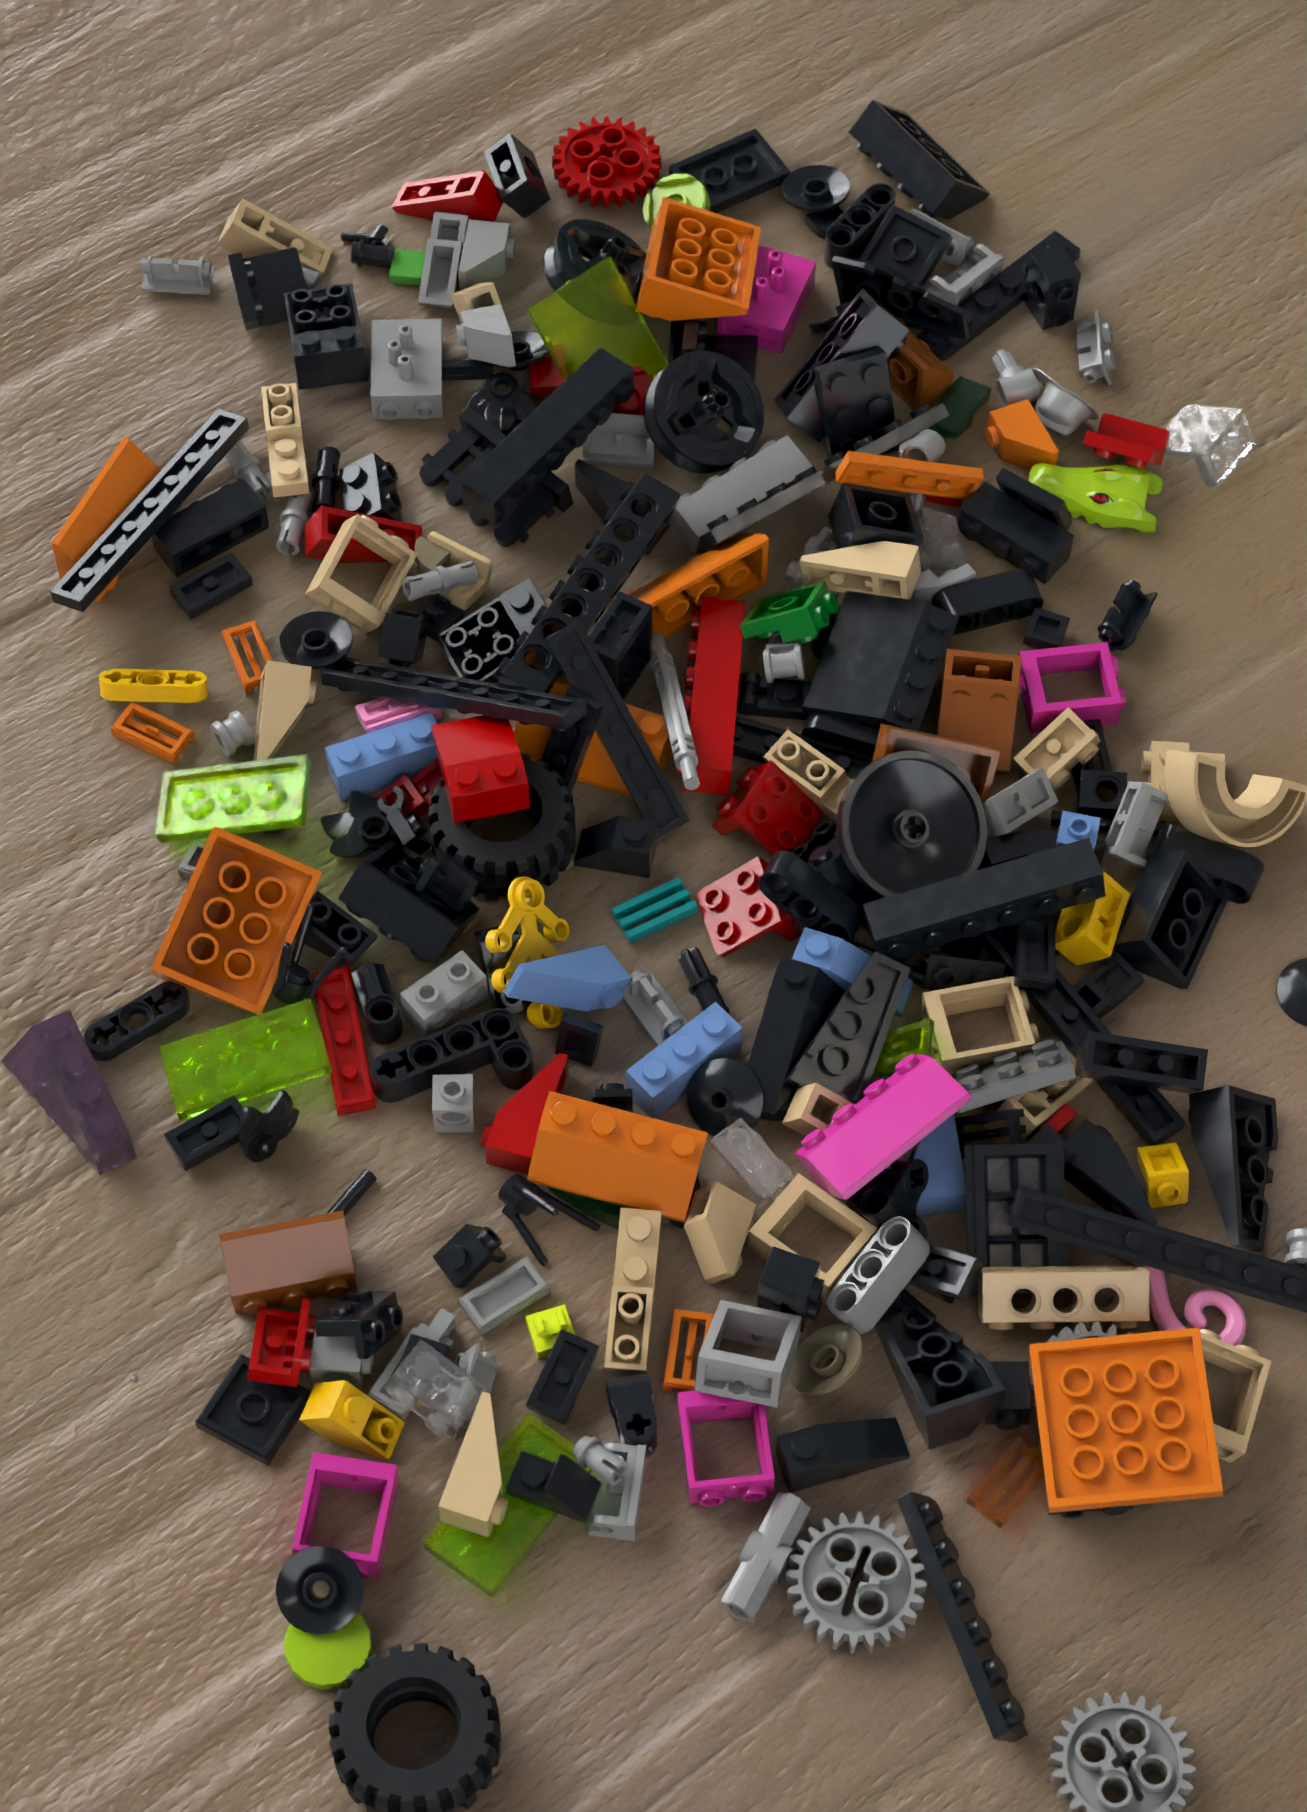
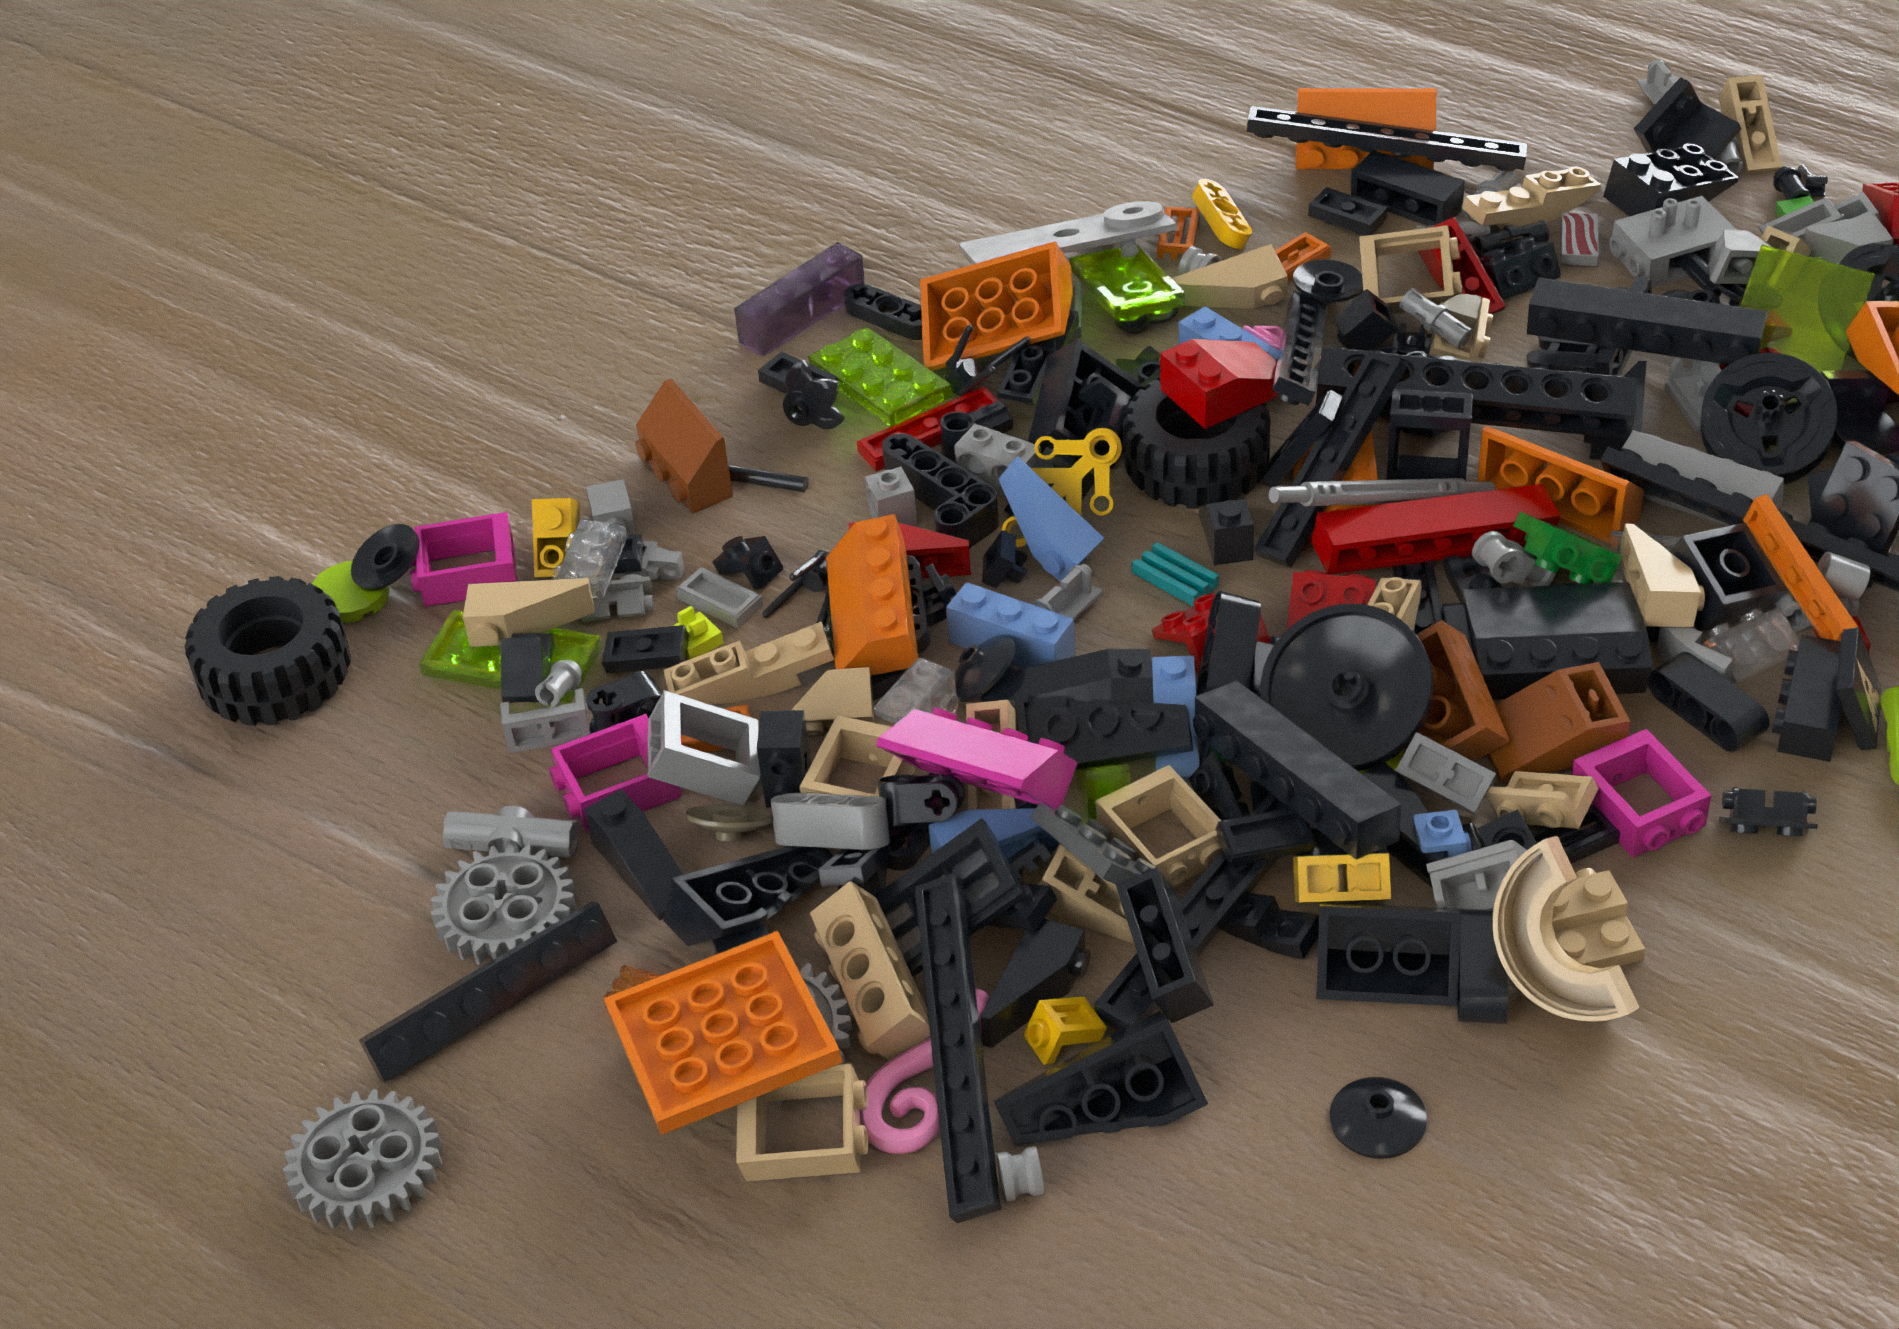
camera: 75 degrees right, 15 degrees down
(134, 869) = (1117, 224): none -> piece
(252, 1413) = (551, 478): black tile -> none
(279, 1345) = (604, 466): red bracket -> none
(351, 432) = (1579, 239): none -> tile
(366, 1315) = (643, 506): black bracket -> none
(701, 981) = (1107, 624): black axle -> none
(1045, 629) = (1705, 757): black plate -> none
(1060, 1119) = (1075, 915): red tile -> none

